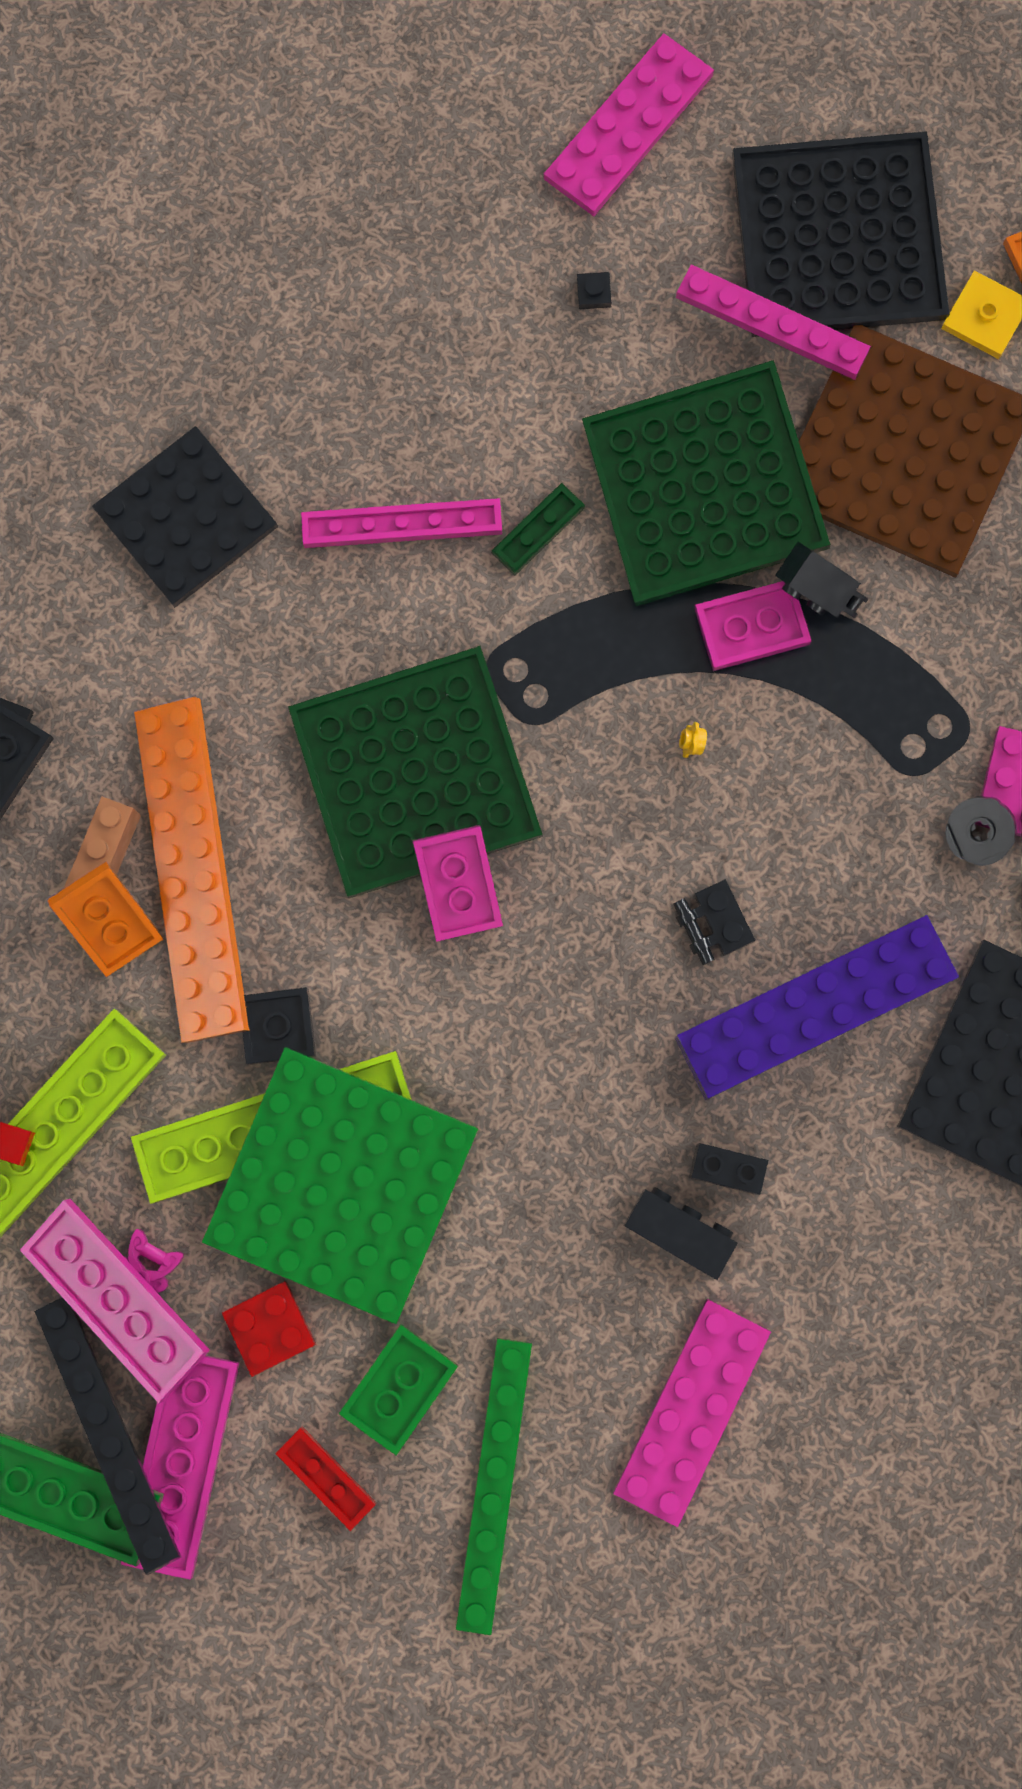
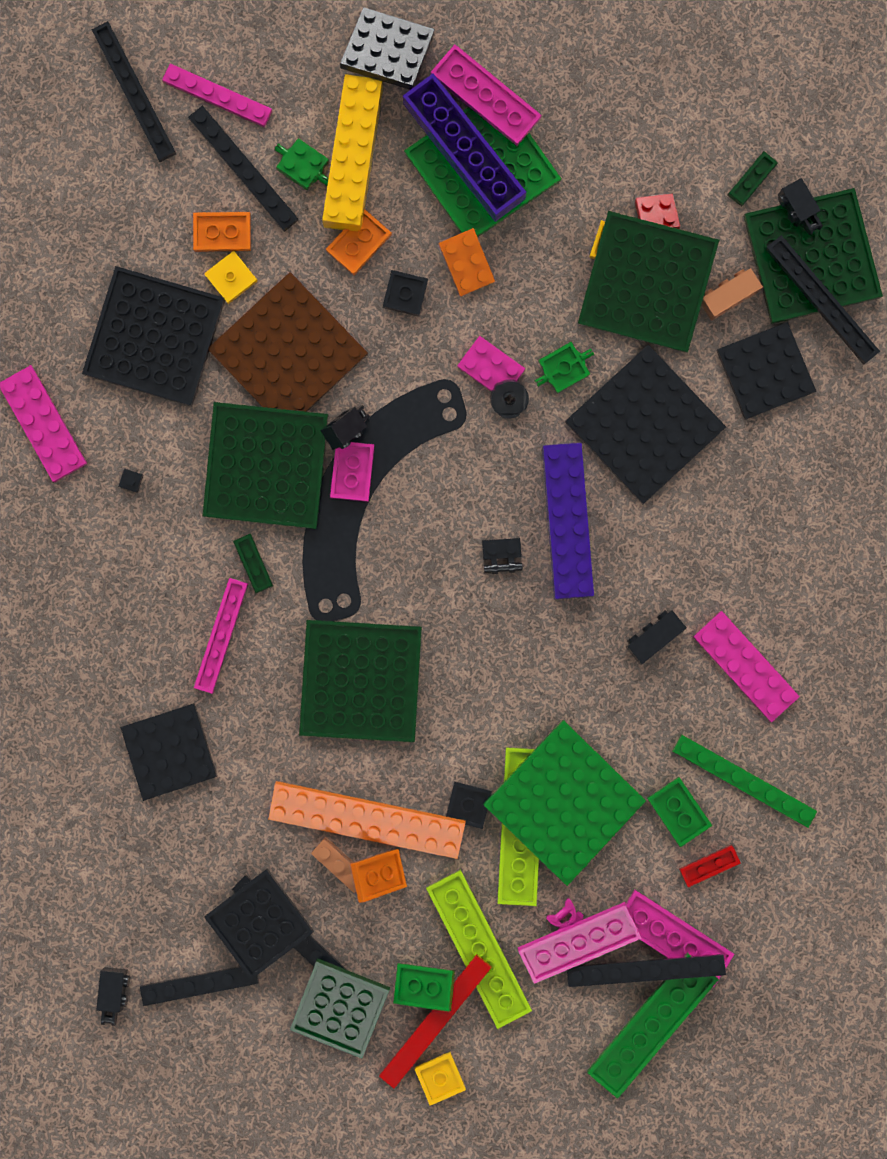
camera: 75 degrees left, 5 degrees up
(268, 1328) = (623, 867): red plate -> none
(458, 883) = (430, 681): dark pink plate -> none
(693, 740) = (402, 527): yellow plate -> none
(728, 1169) = (632, 599): black brick -> none
(772, 322) = (190, 393): dark pink plate -> none

